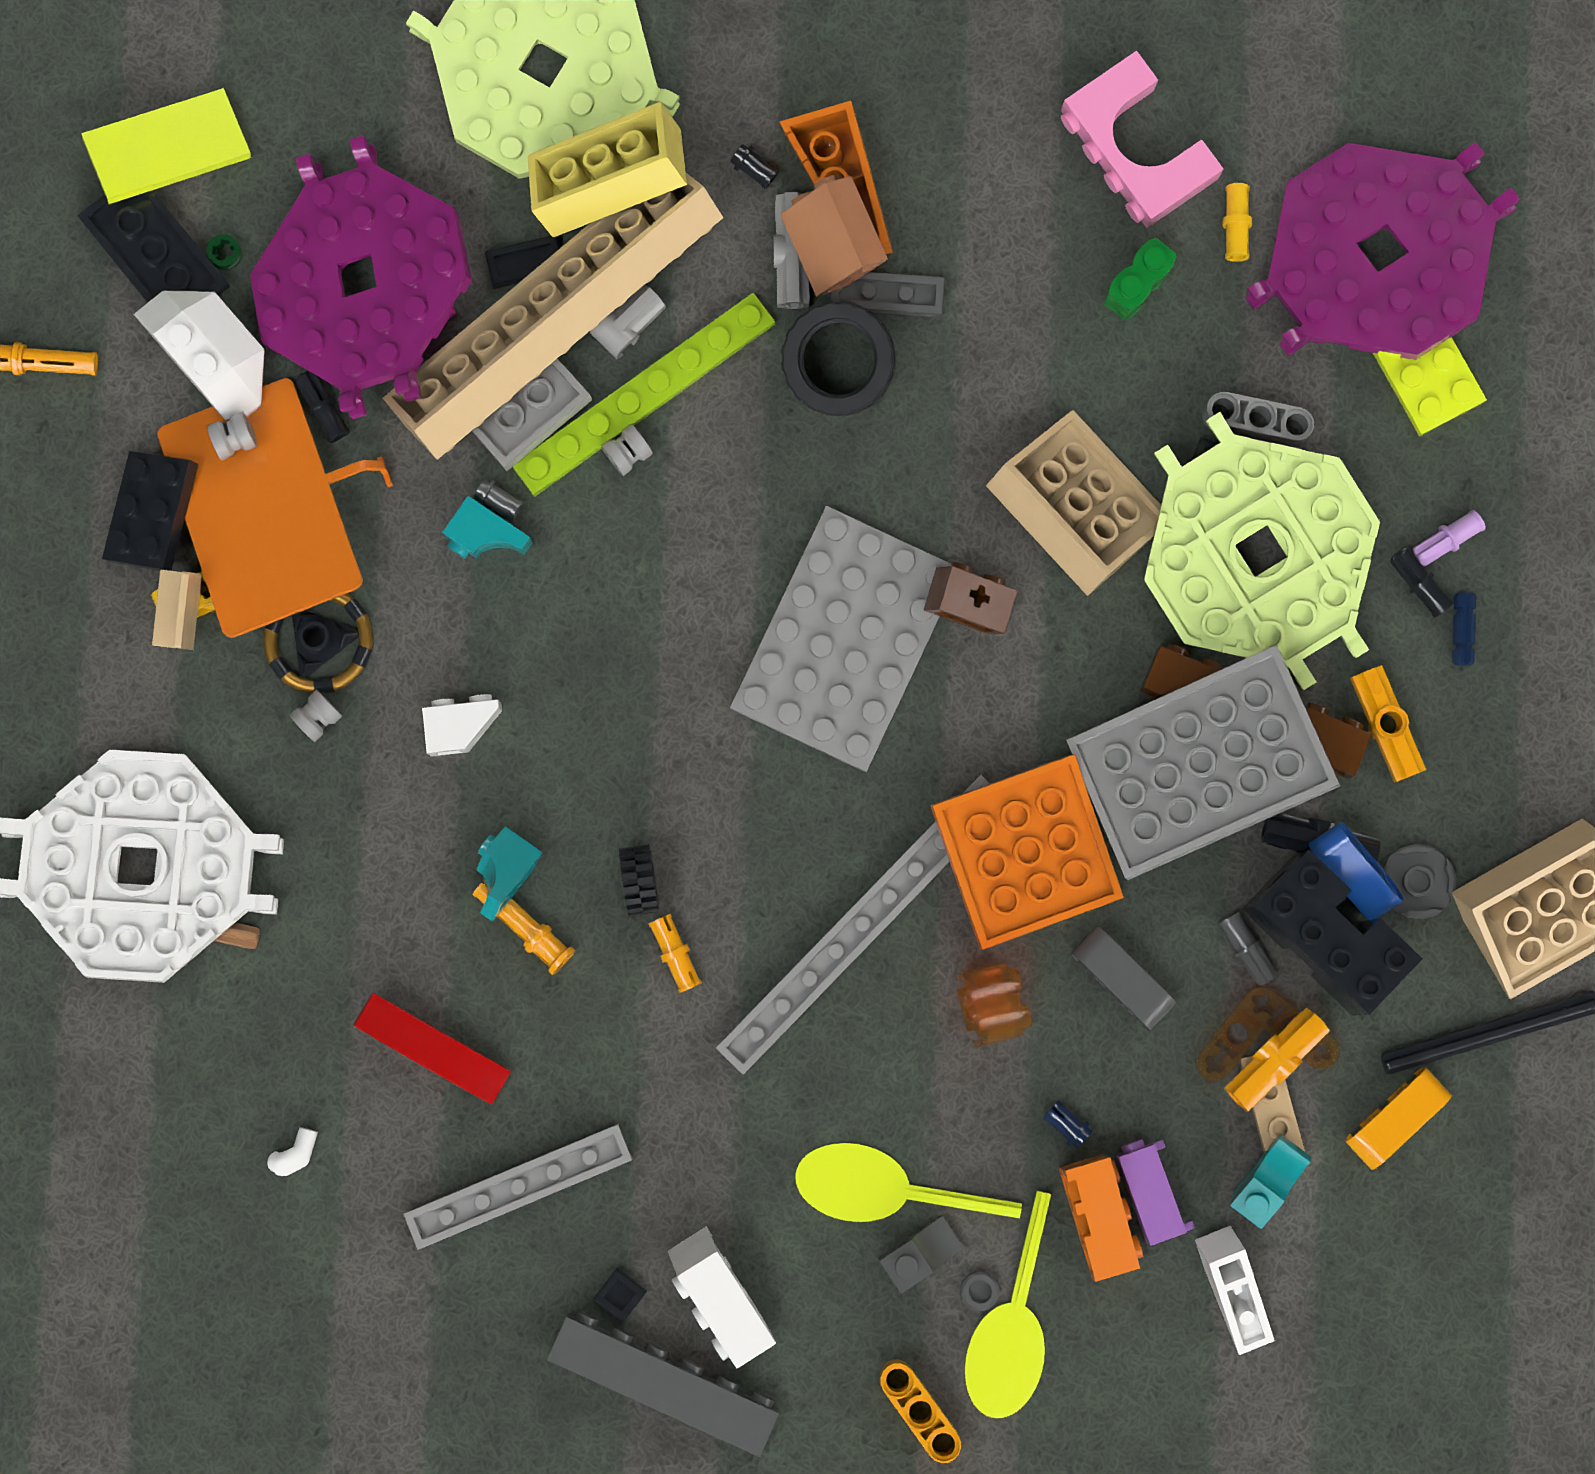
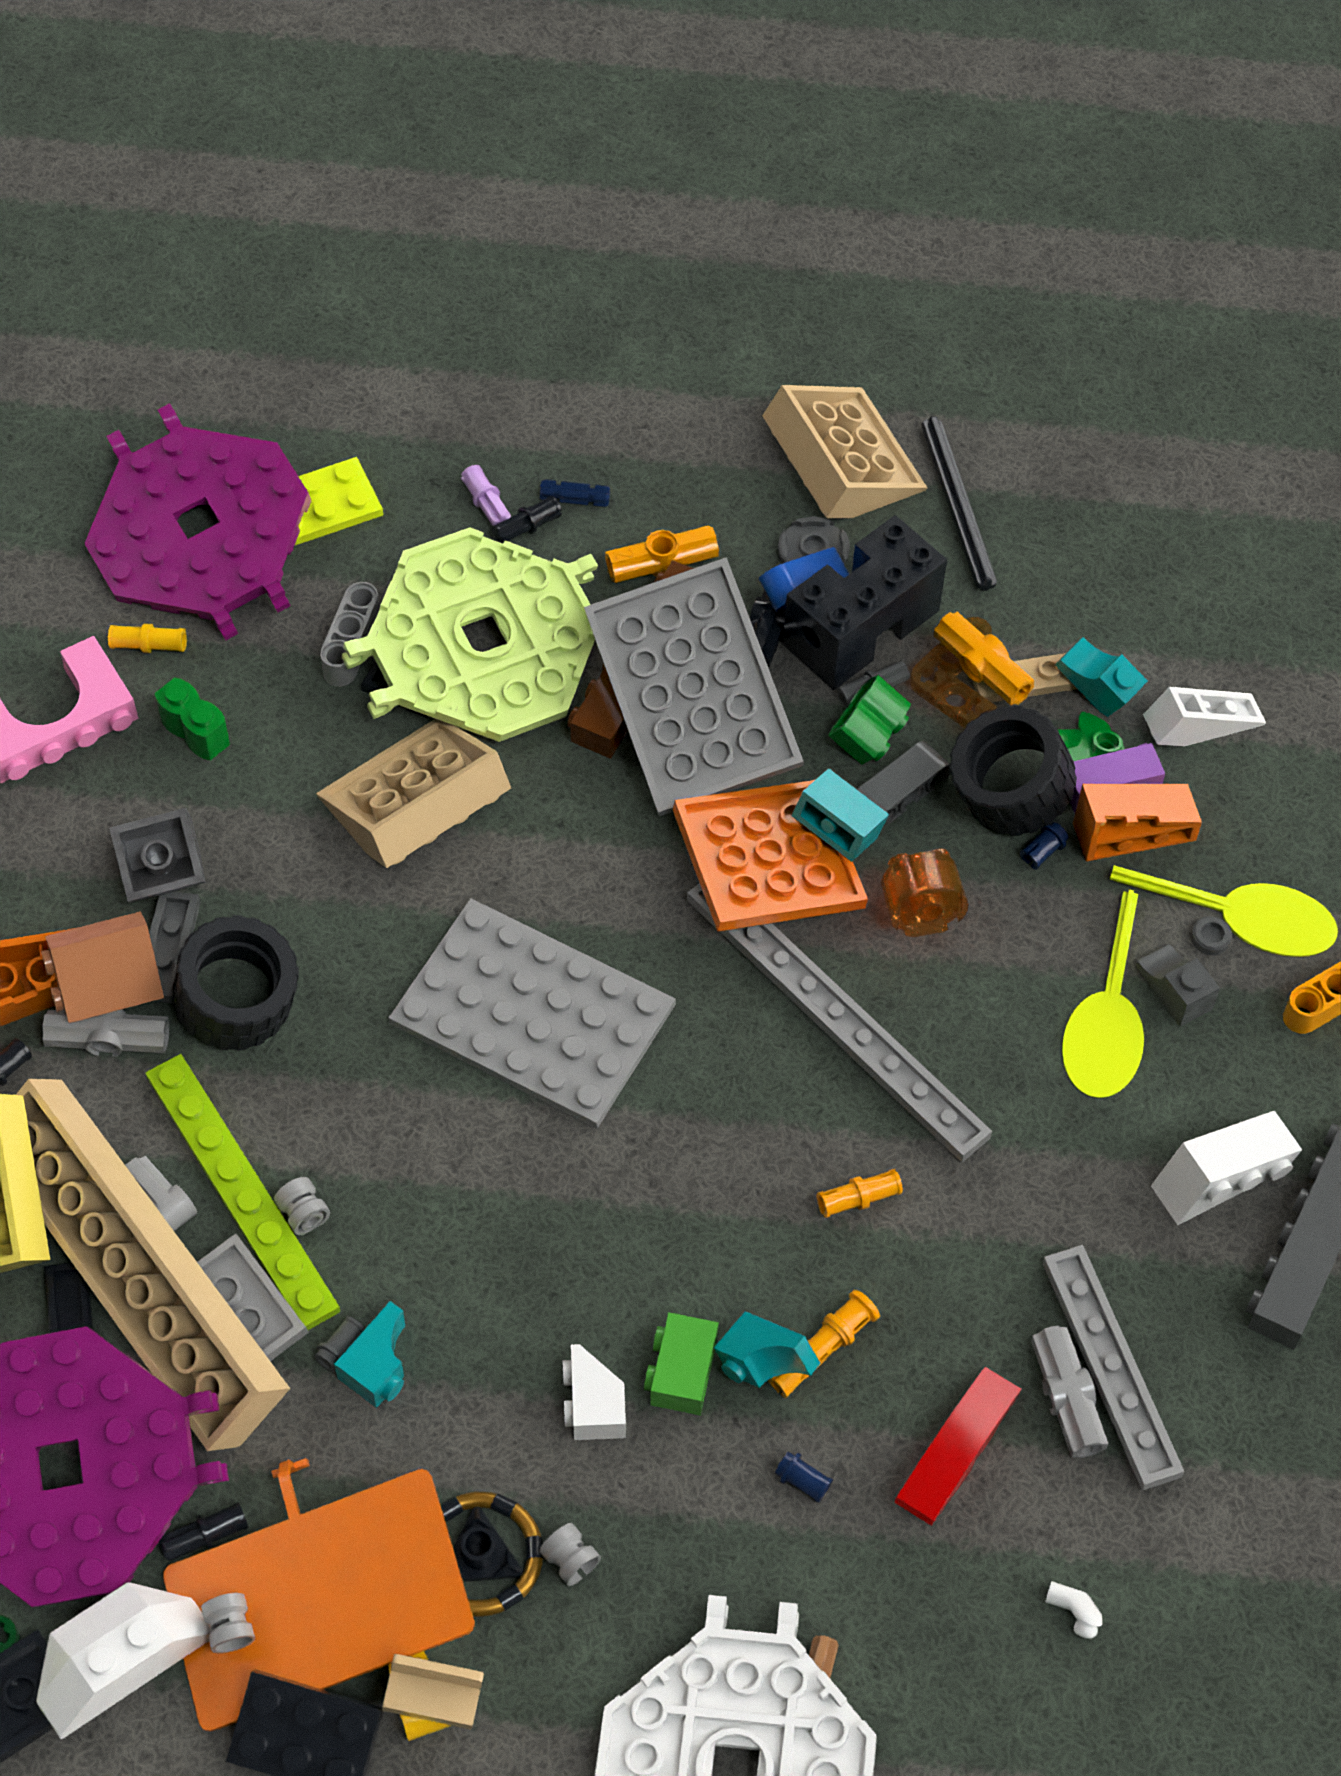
camera: 85 degrees left, 25 degrees down
(399, 912) = (803, 1476): none -> dark blue pin
(489, 1147) = (1069, 1391): none -> light grey piece
(494, 800) = (682, 1363): none -> bright green brick
(620, 1294) = (1226, 1272): black tile -> none
(638, 880) = (781, 1214): black tyre -> none
(951, 600) = (505, 885): reddish brown brick -> none
(976, 270) = (158, 855): none -> flat silver slope
(1071, 919) = (840, 814): none -> teal brick
(1142, 1046) = (996, 735): none -> black tyre
(1195, 946) = (870, 720): none -> green brick
(1196, 1164) = (1091, 738): none -> green plate
(1400, 1119) = (1040, 575): light orange beam -> none

